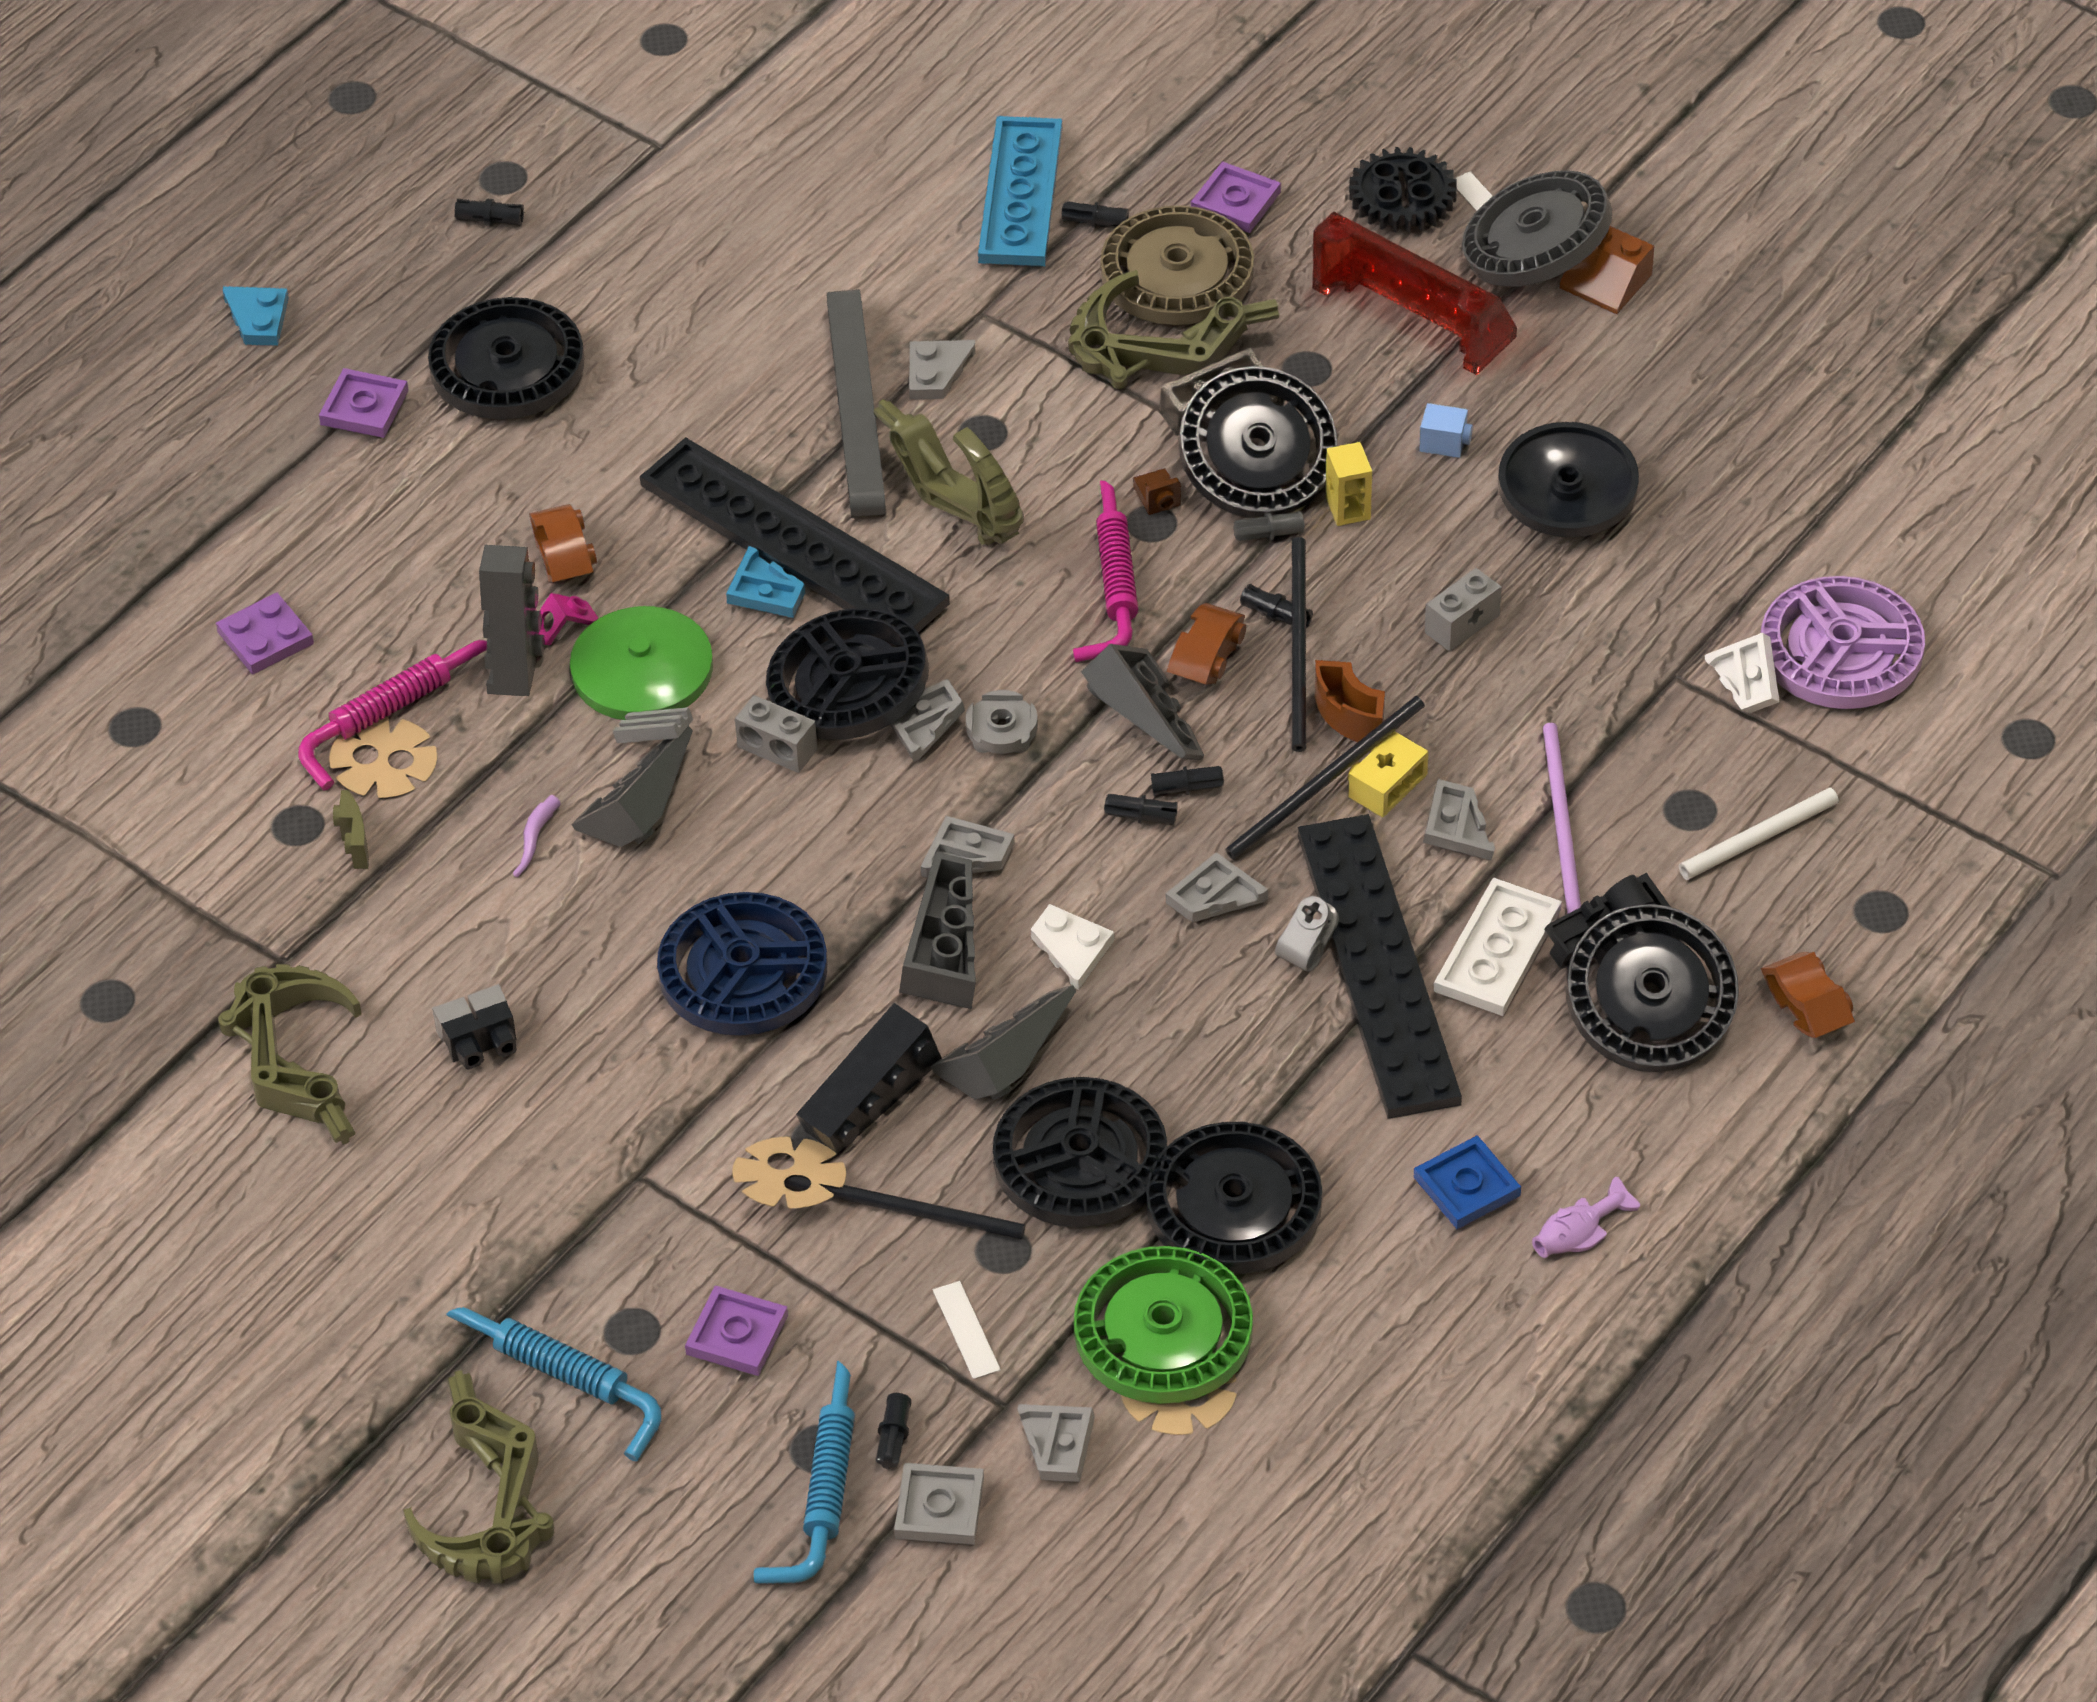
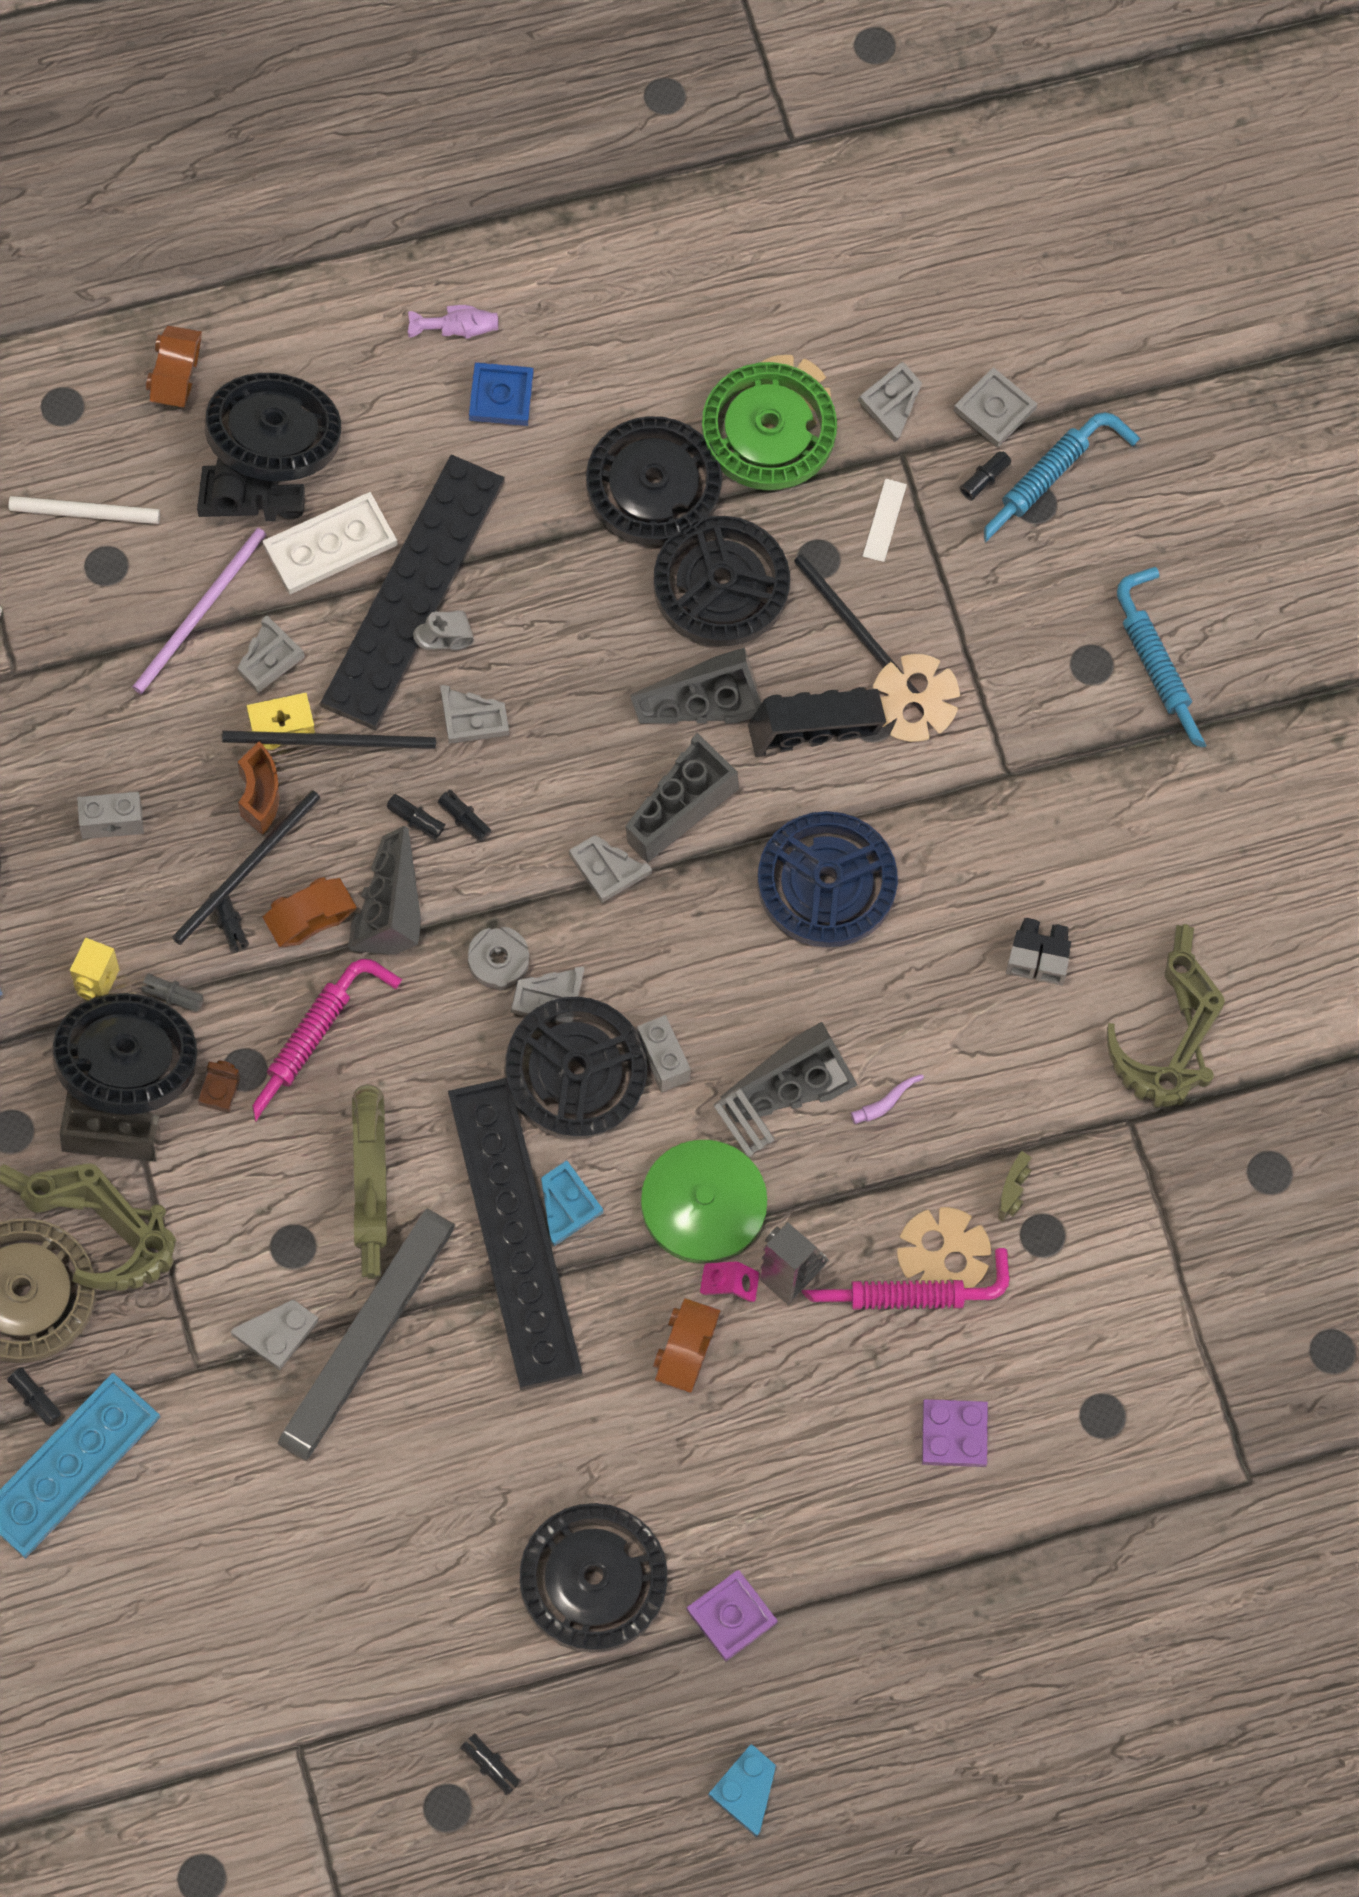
camera: 150 degrees left, 20 degrees up
(495, 1440) = (1236, 633): olive piece -> none
(736, 1330) = (1031, 608): medium lavender plate -> none
(1071, 942) = (596, 748): white wing -> none

